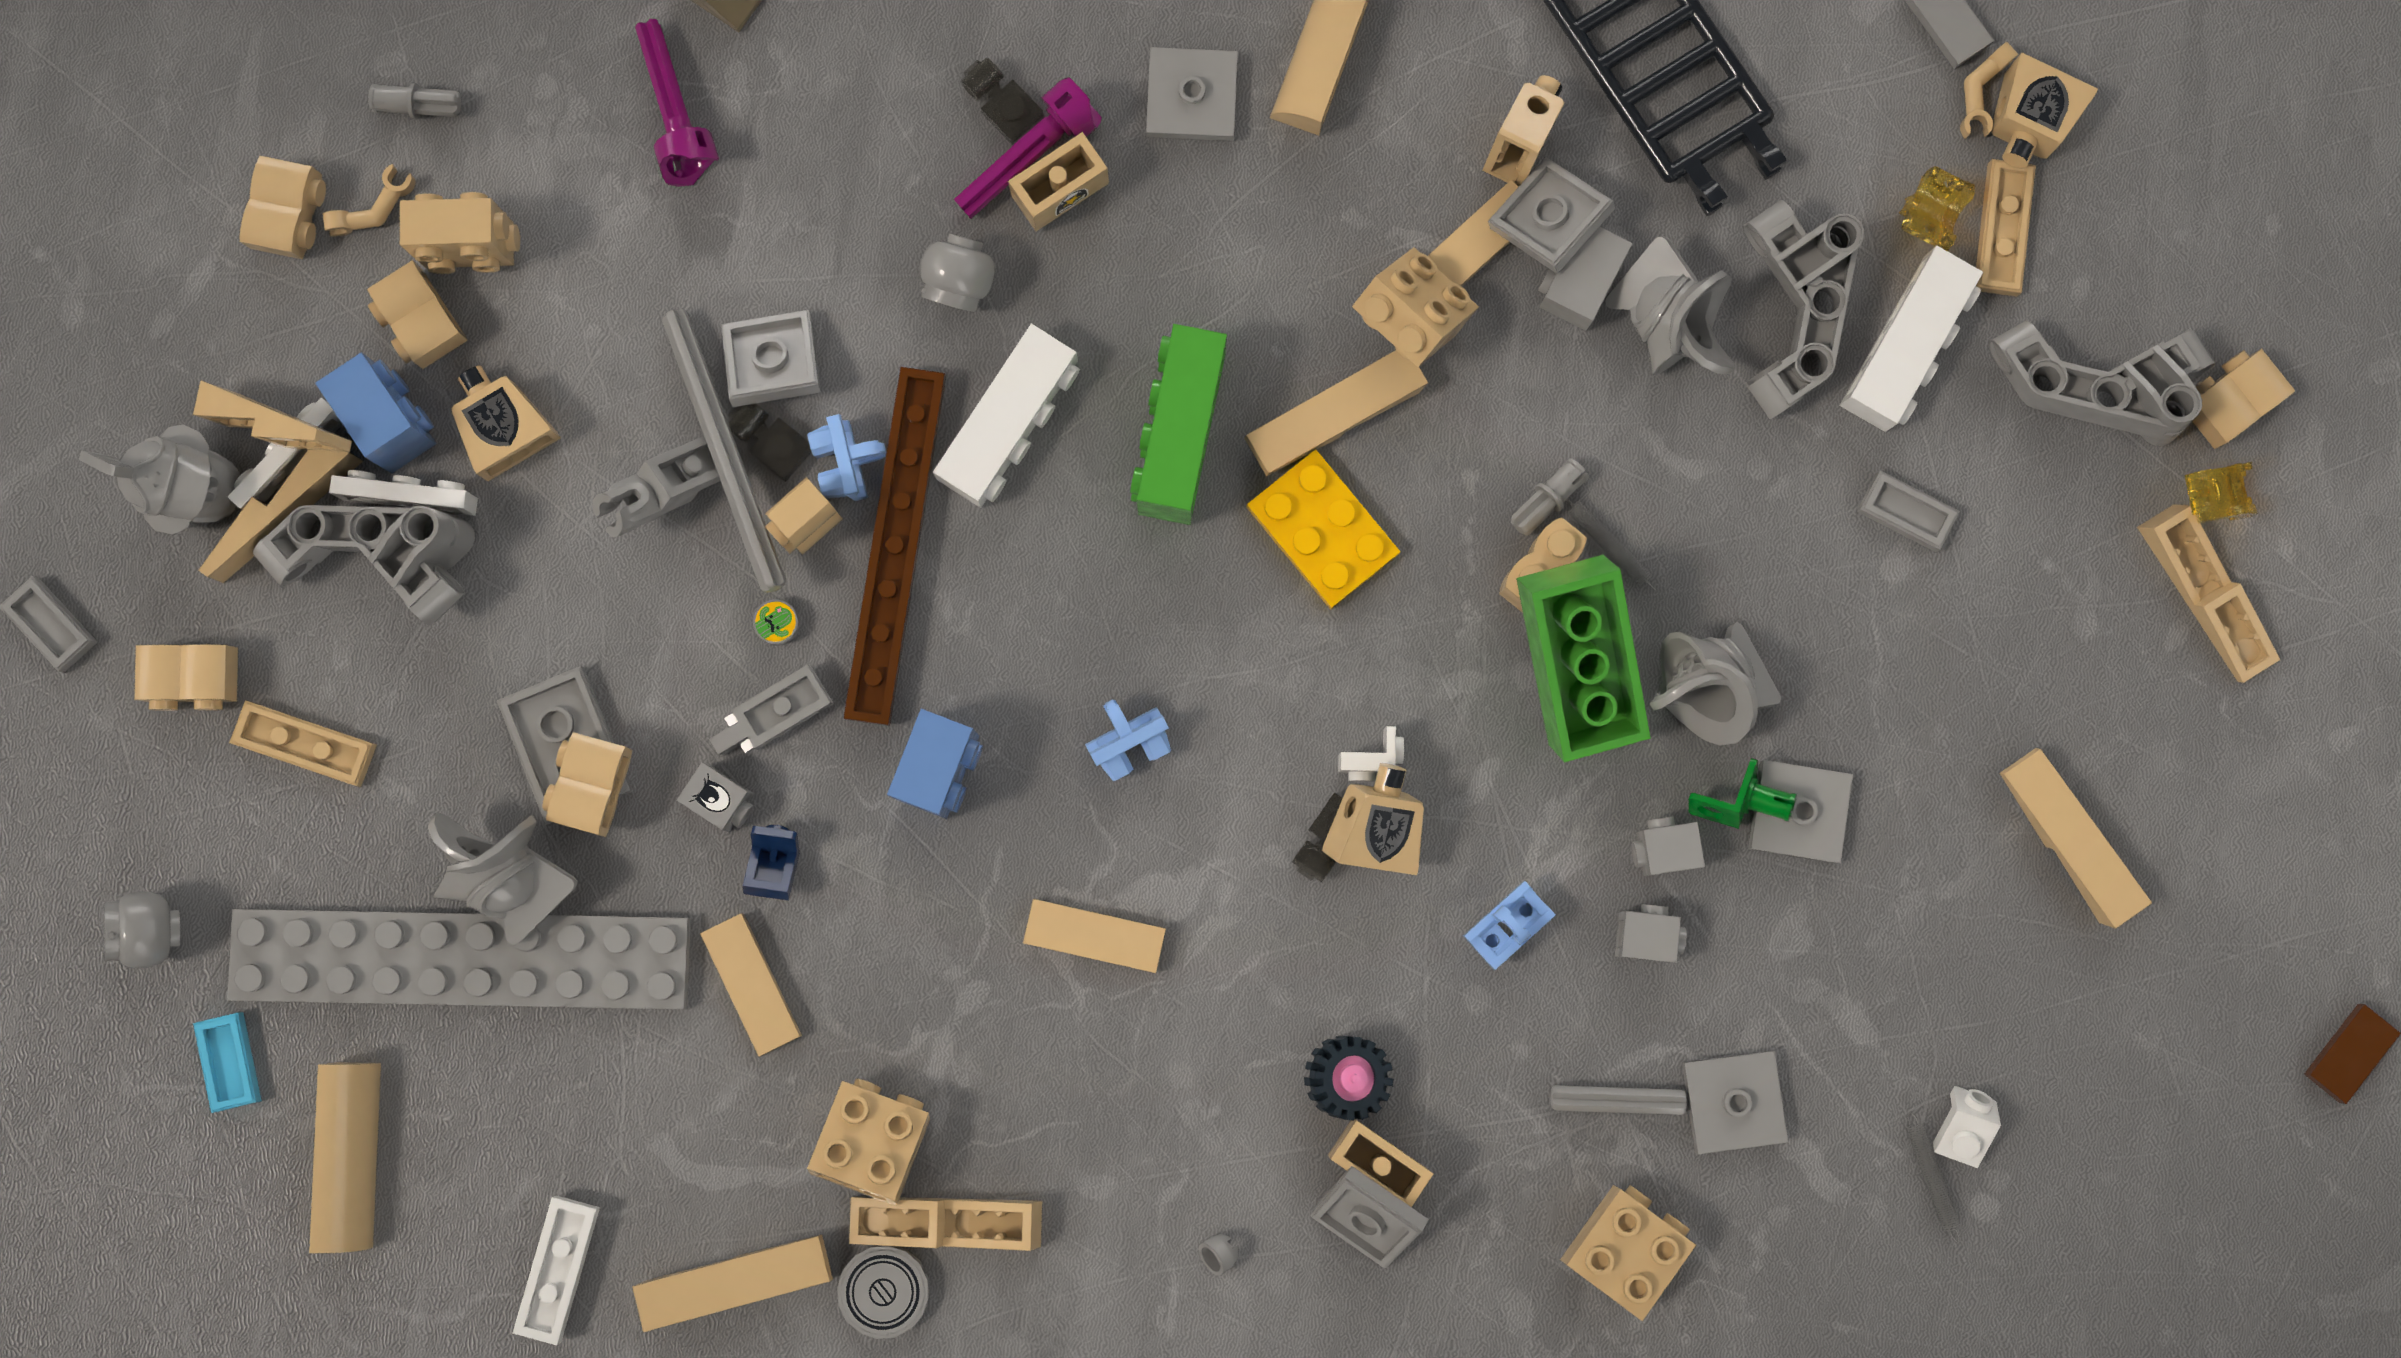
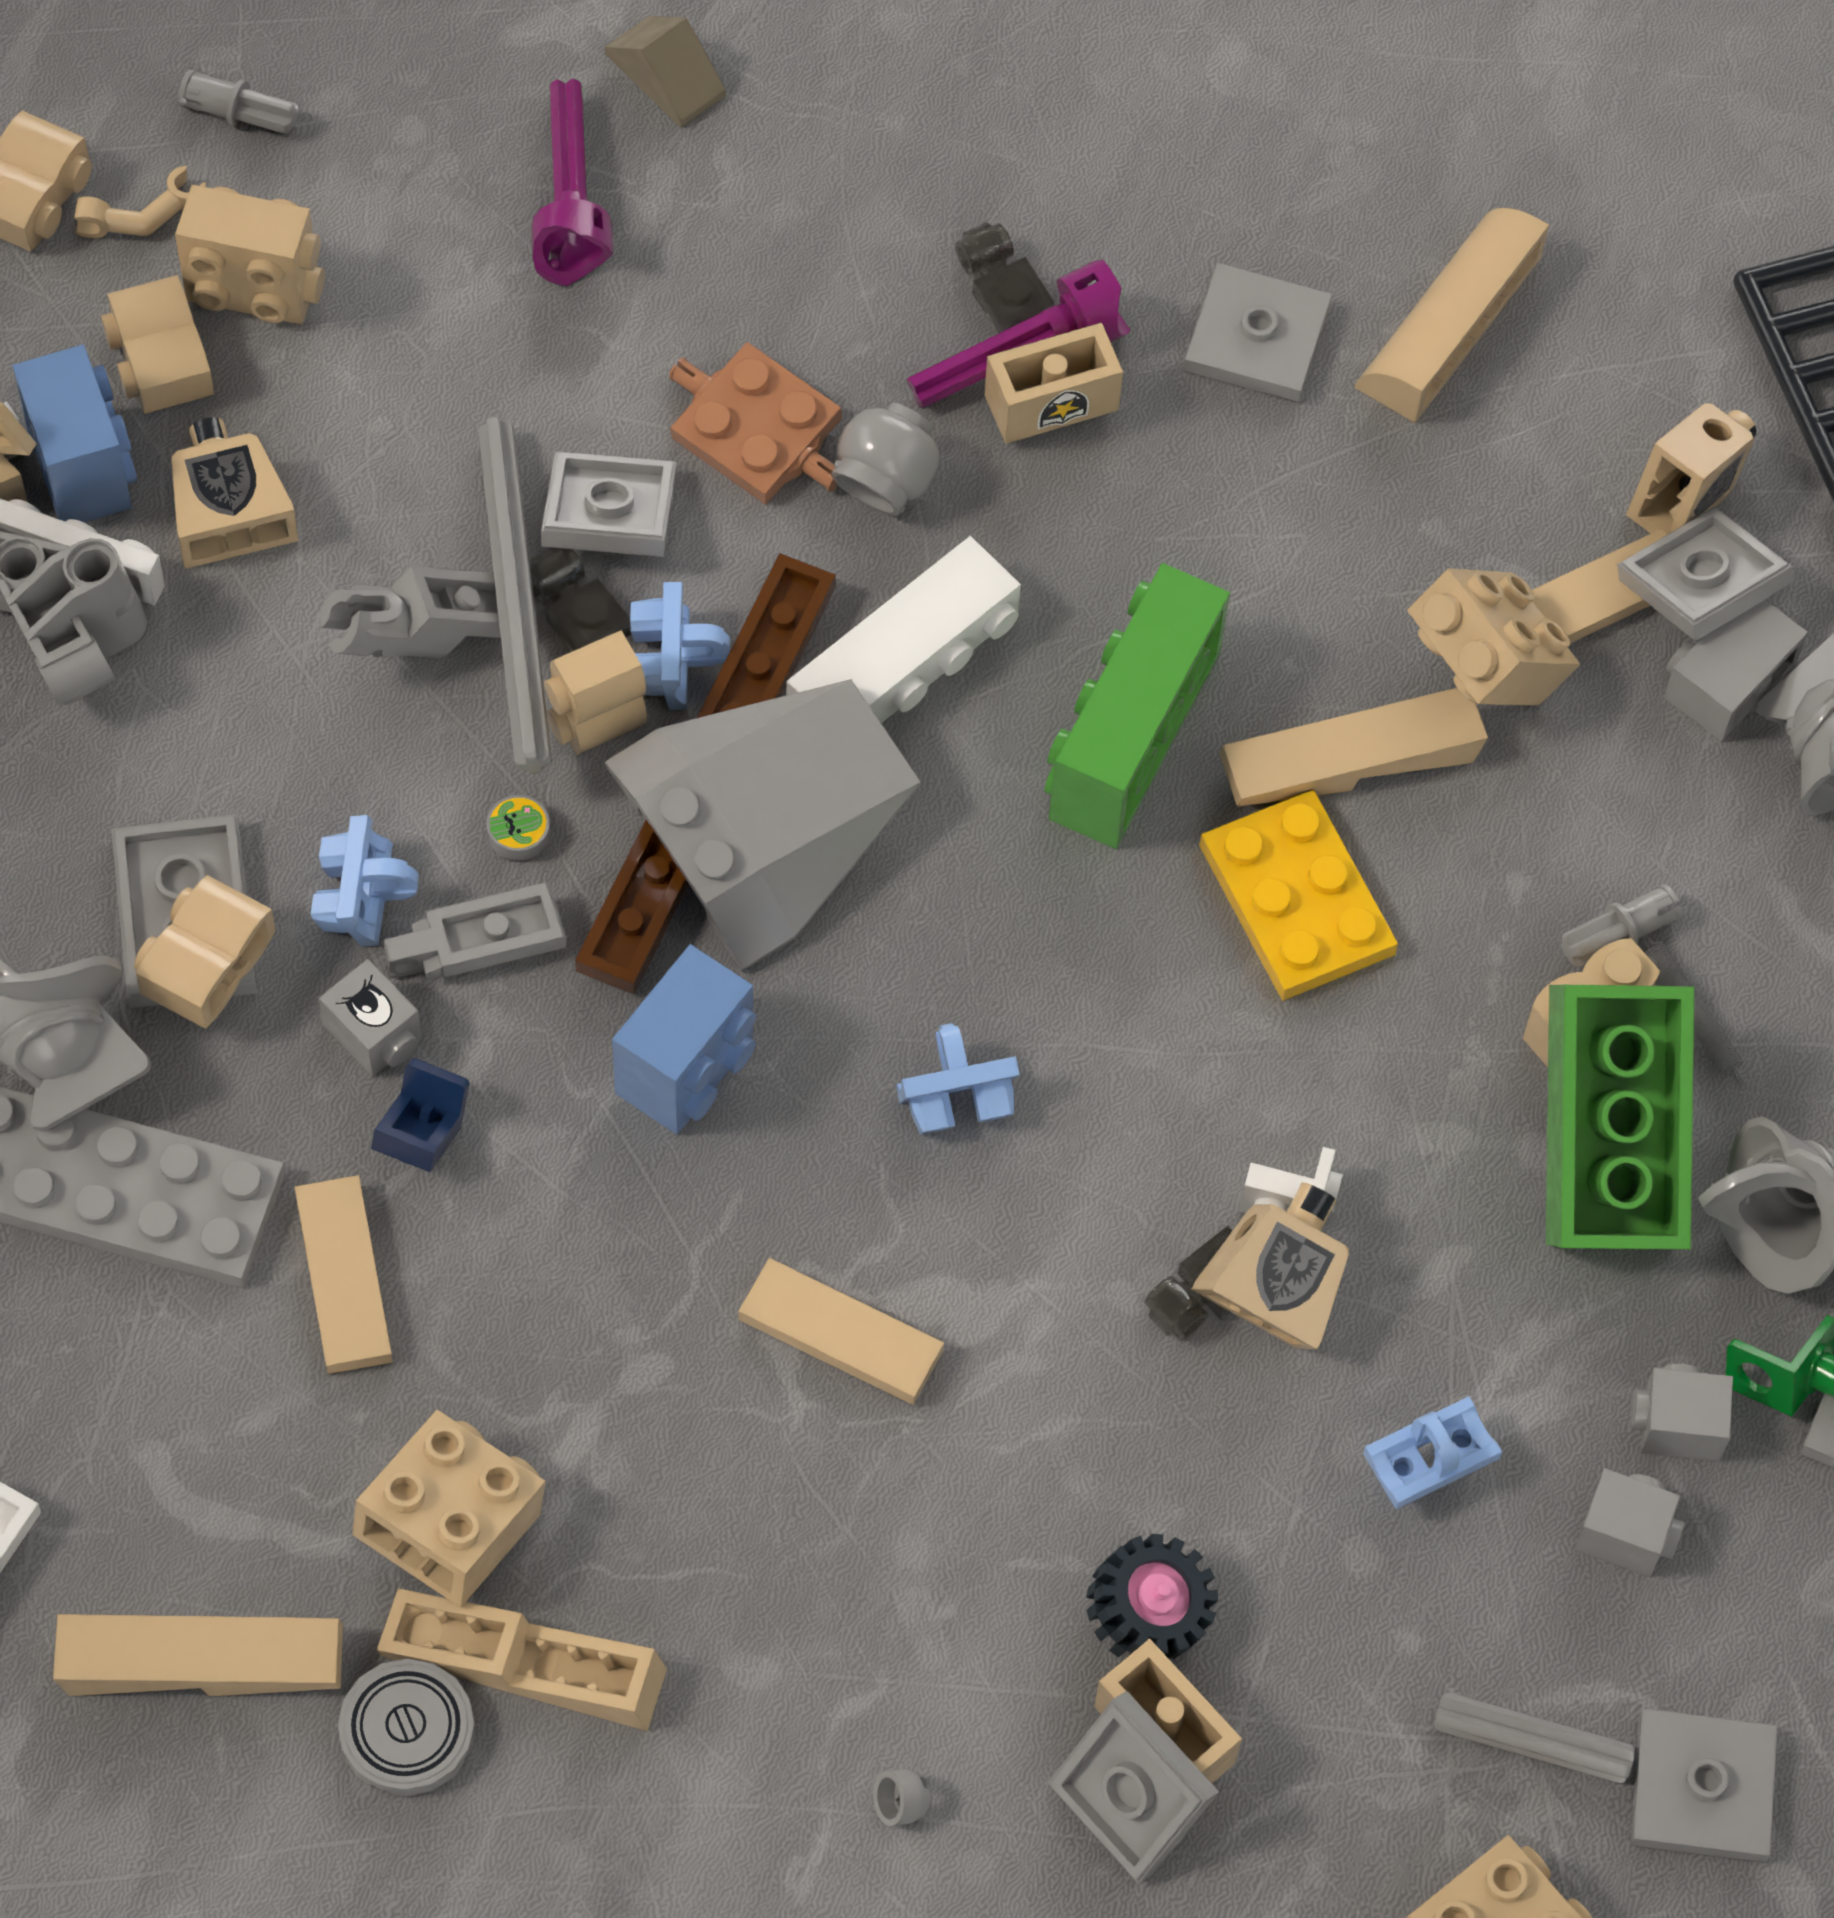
camera: 15 degrees right, 20 degrees down
(683, 696) = (367, 881): none -> light blue hips
(856, 262) = (756, 423): none -> nougat plate
(942, 570) = (768, 806): none -> light grey wedge

